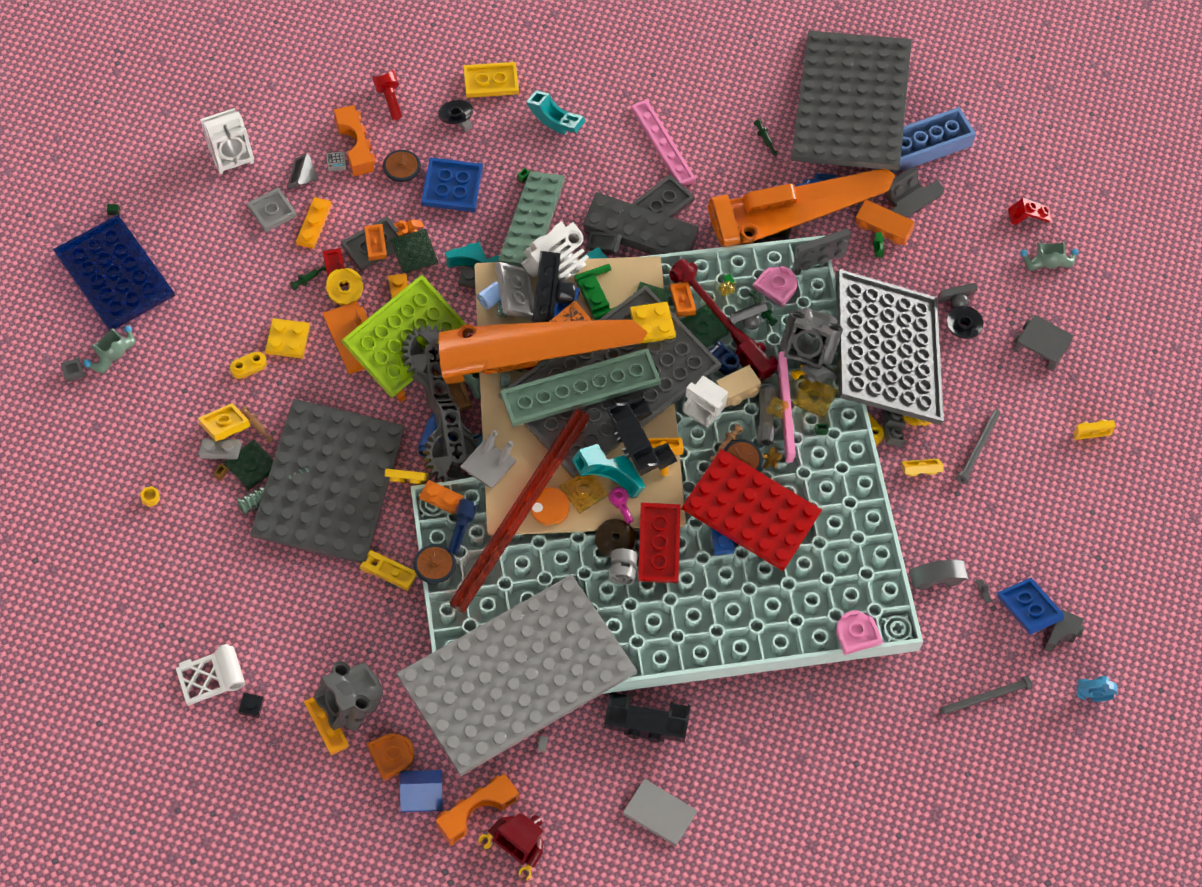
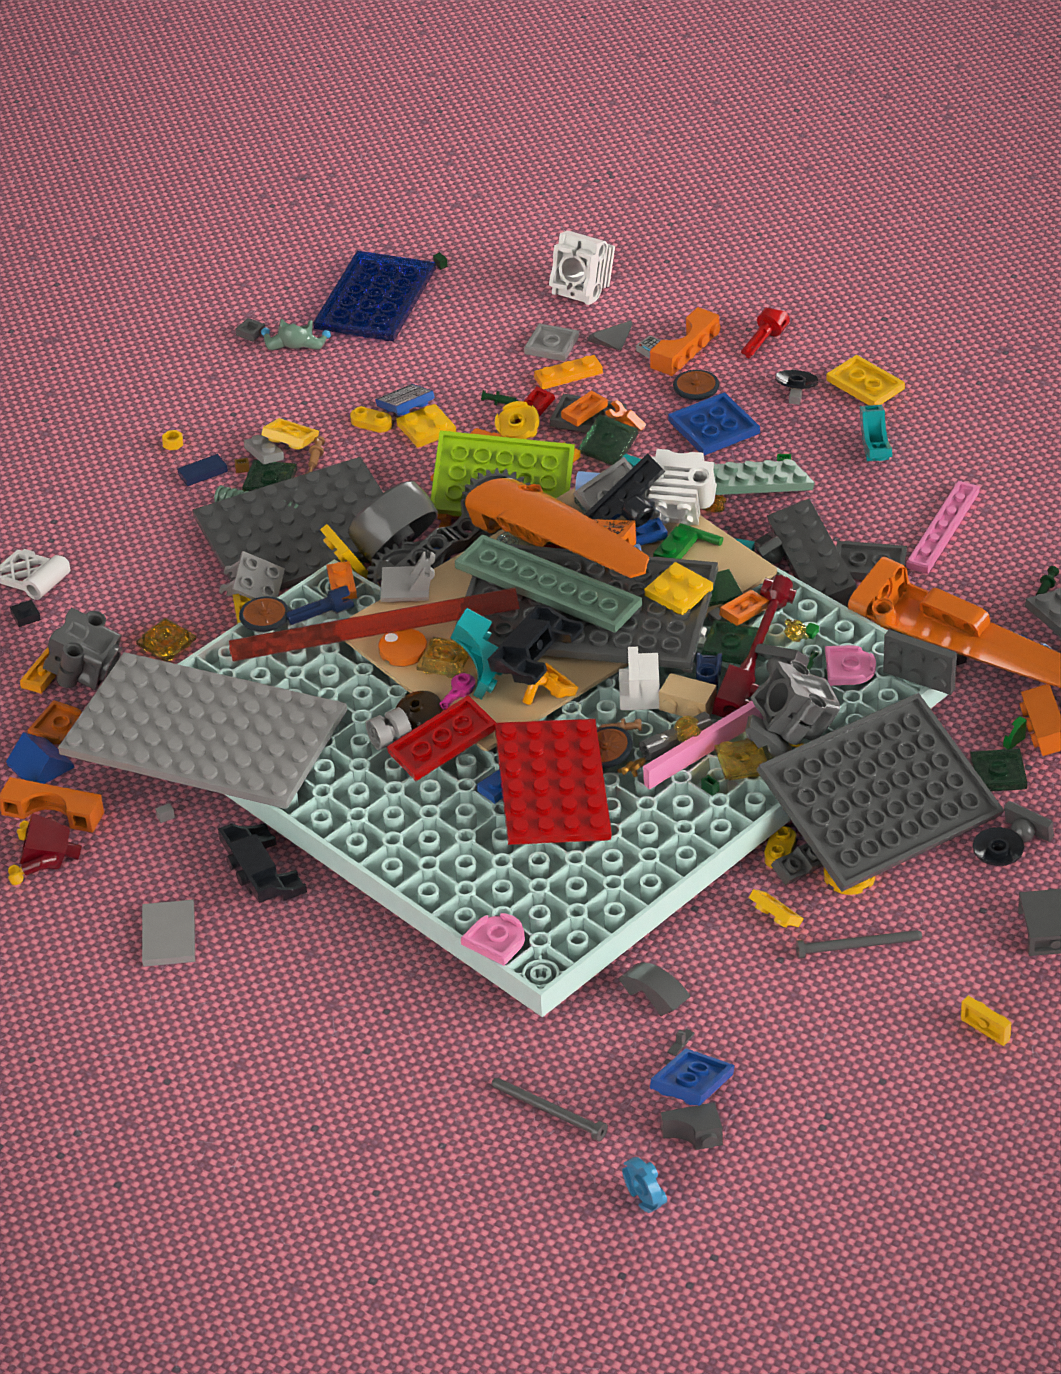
camera: 60 degrees right, 20 degrees down
(200, 499) = (202, 470): none -> dark blue tile
(254, 332) = (405, 399): none -> tile
(362, 645) = (166, 639): none -> clear yellow piece
(369, 542) = (253, 577): none -> light grey plate
(410, 428) = (392, 518): none -> dark grey wheel
(898, 272) = (1000, 769): none -> clear green tile

